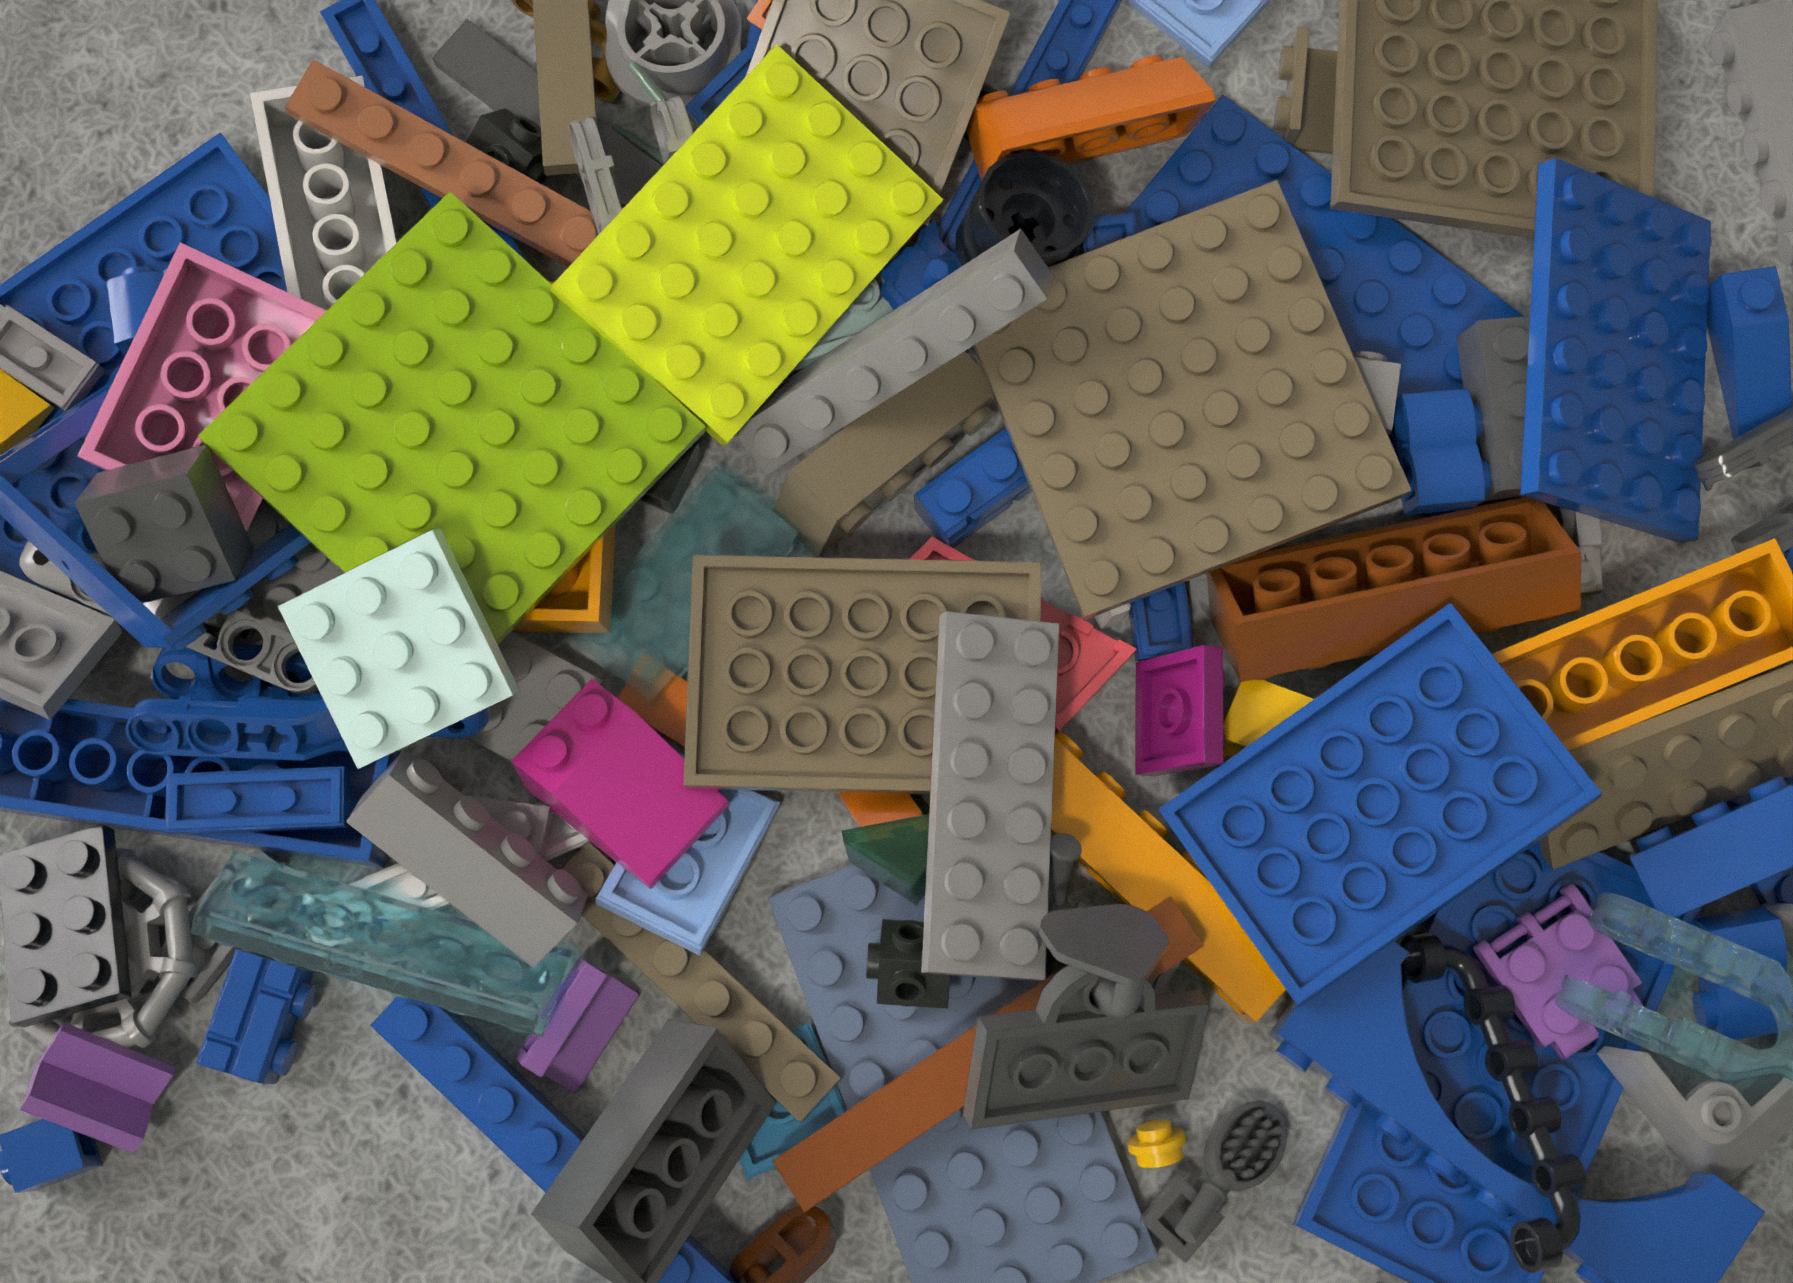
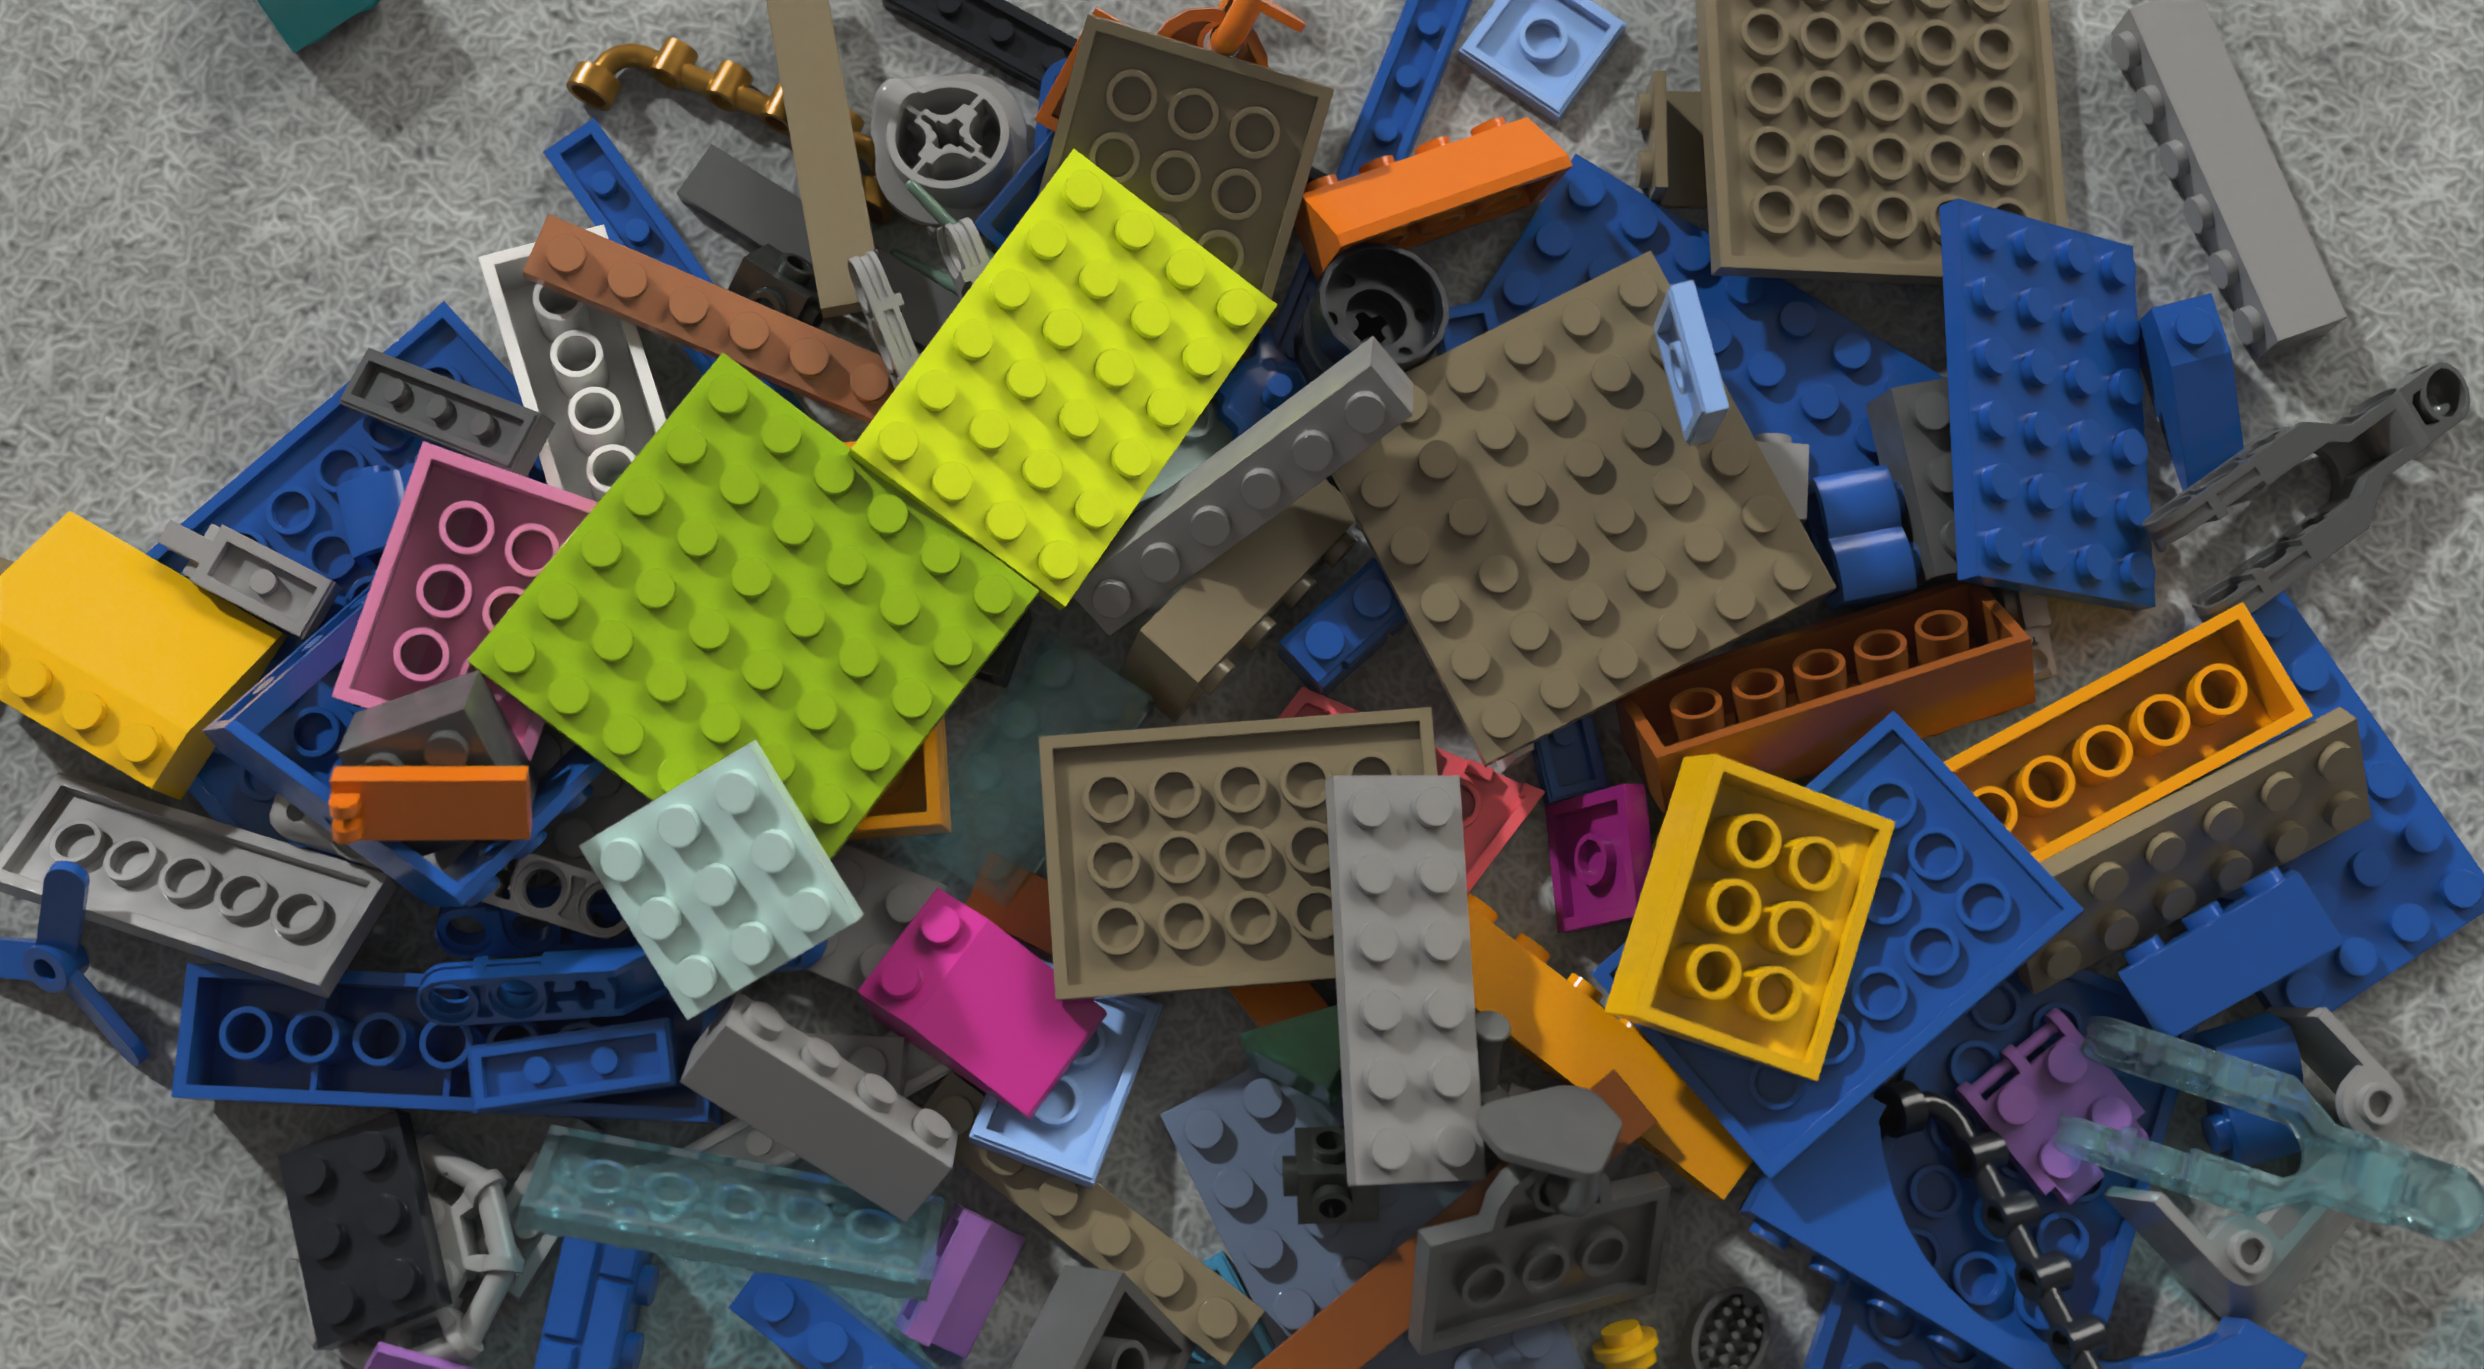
camera: 10 degrees left, 0 degrees up
(150, 554) = (430, 803): none -> orange hinge
(209, 224) = (447, 412): none -> dark grey tile
(1299, 278) = (1690, 364): none -> light blue tile
(1304, 770) = (1750, 915): none -> yellow slope

